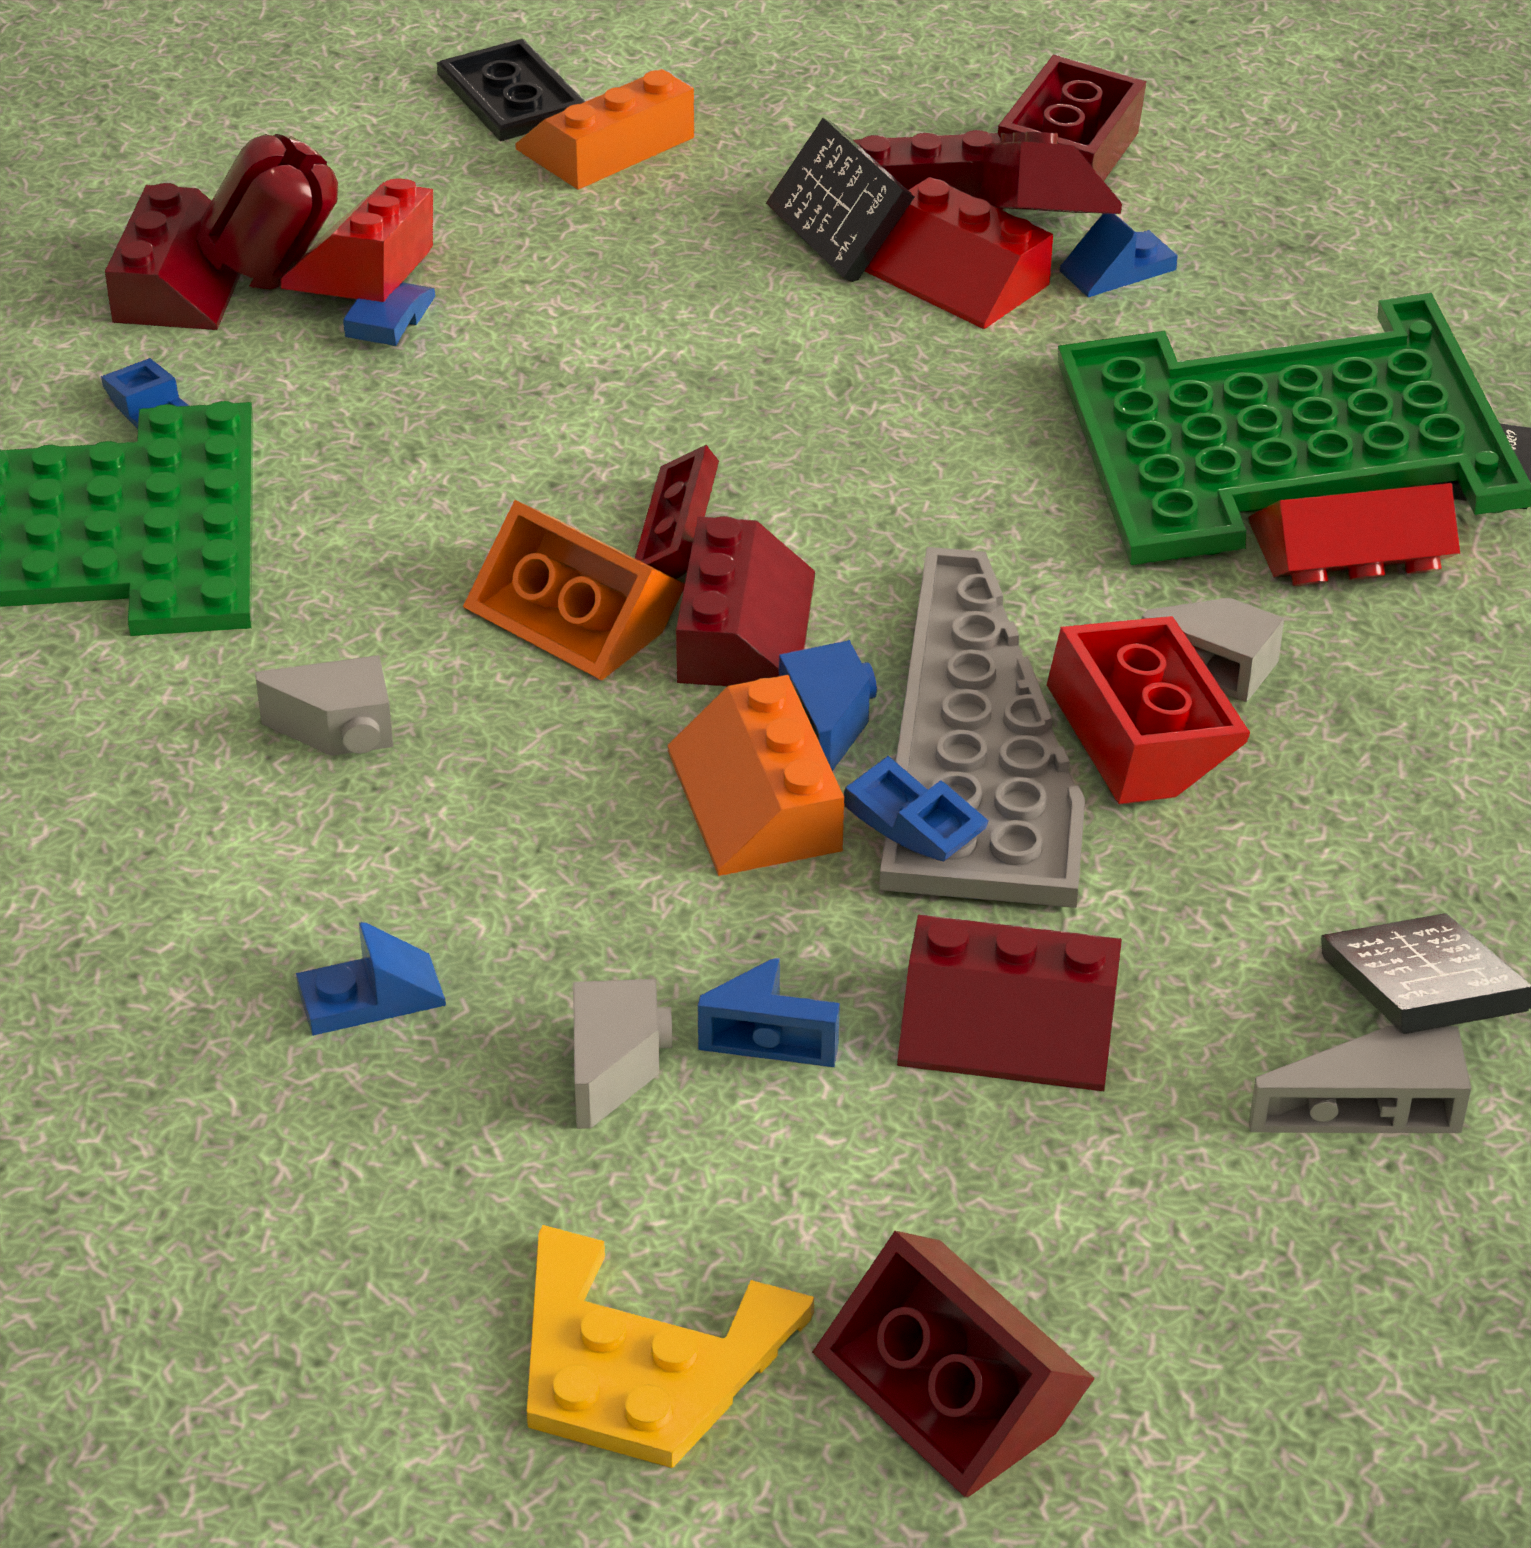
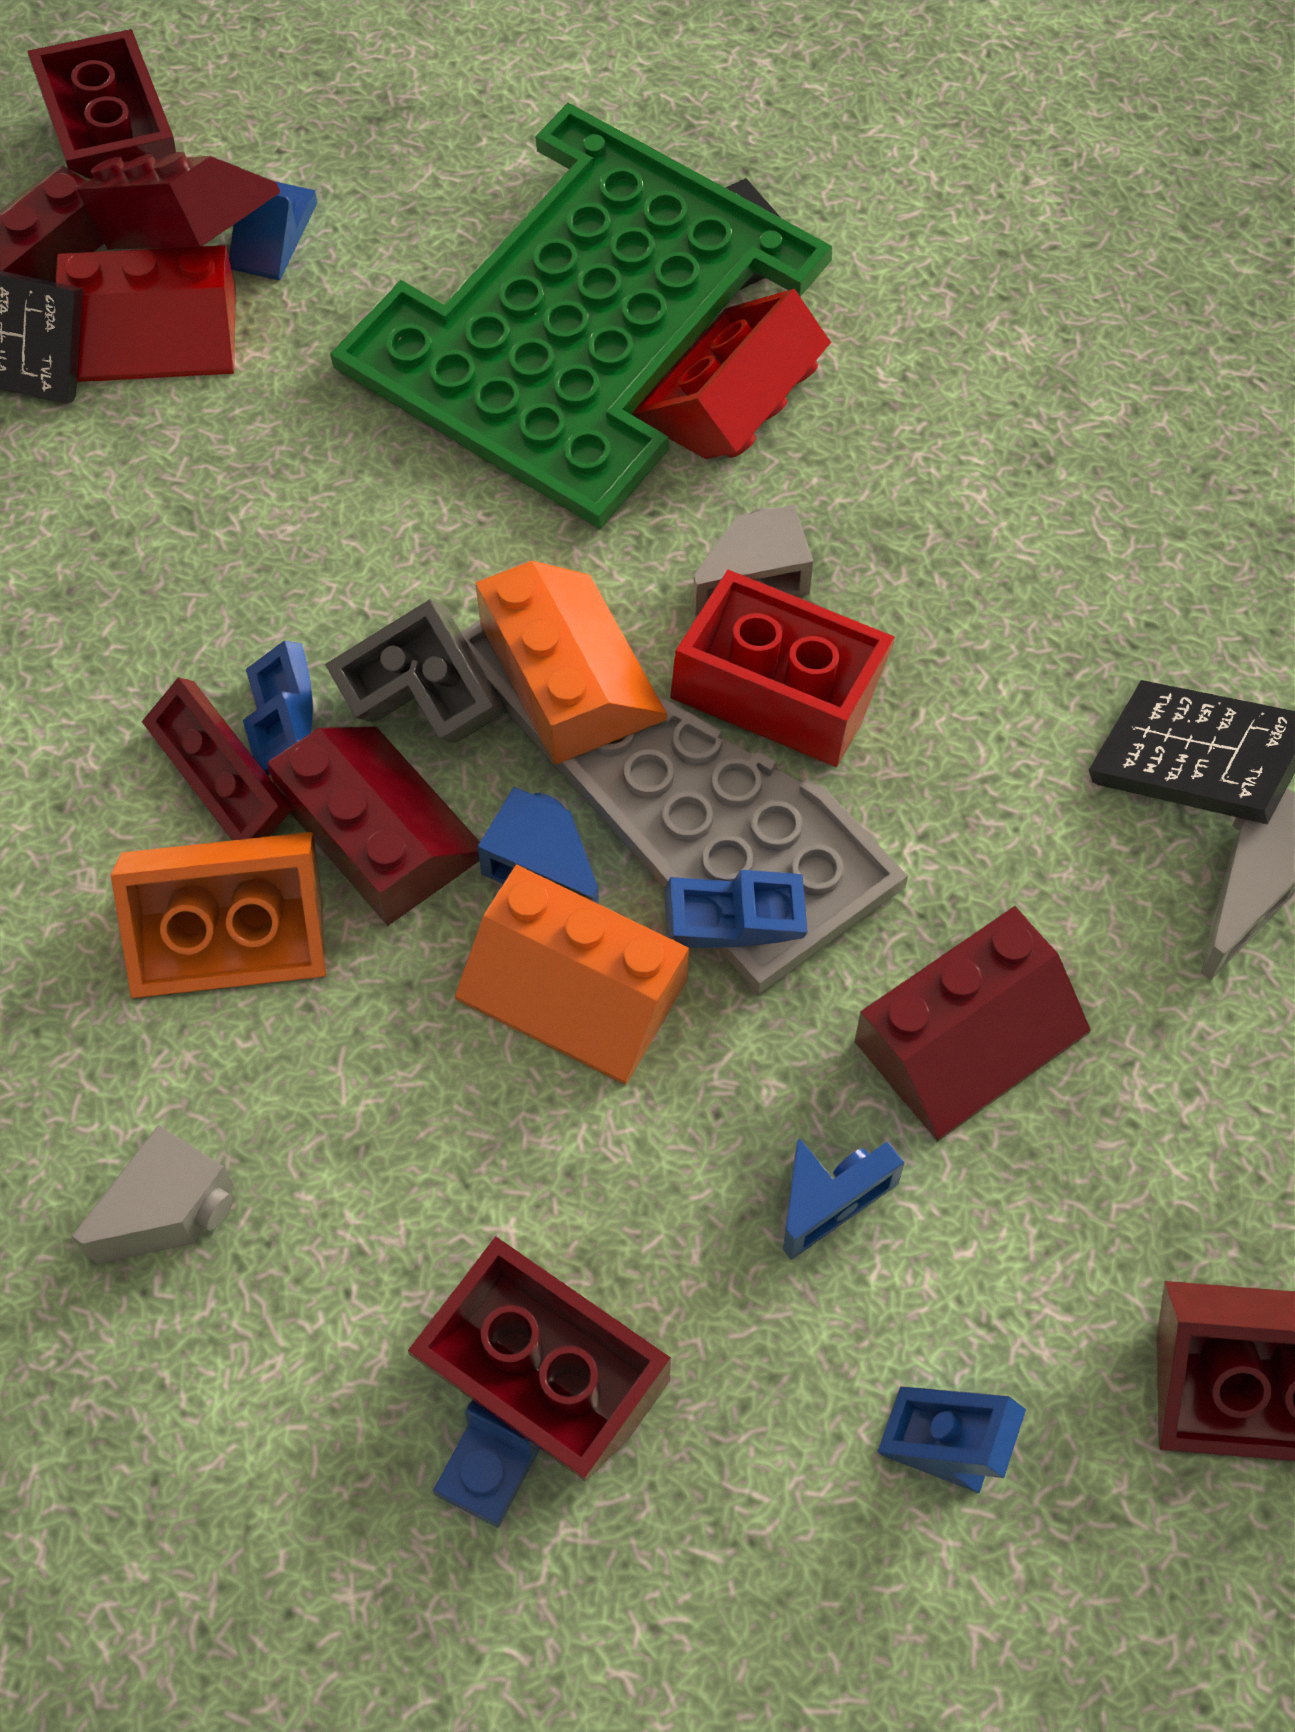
camera: 45 degrees left, 20 degrees up
(446, 946) = (543, 1359): none -> dark red slope
(615, 1043) = (750, 1323): light grey slope -> none
(636, 1379) = (1074, 1603): yellow wing -> none
(668, 1216) = (953, 1434): none -> blue slope
(773, 501) = (282, 701): none -> blue slope
(872, 539) = (422, 660): none -> dark grey brick
(984, 594) = (566, 658): none -> orange slope

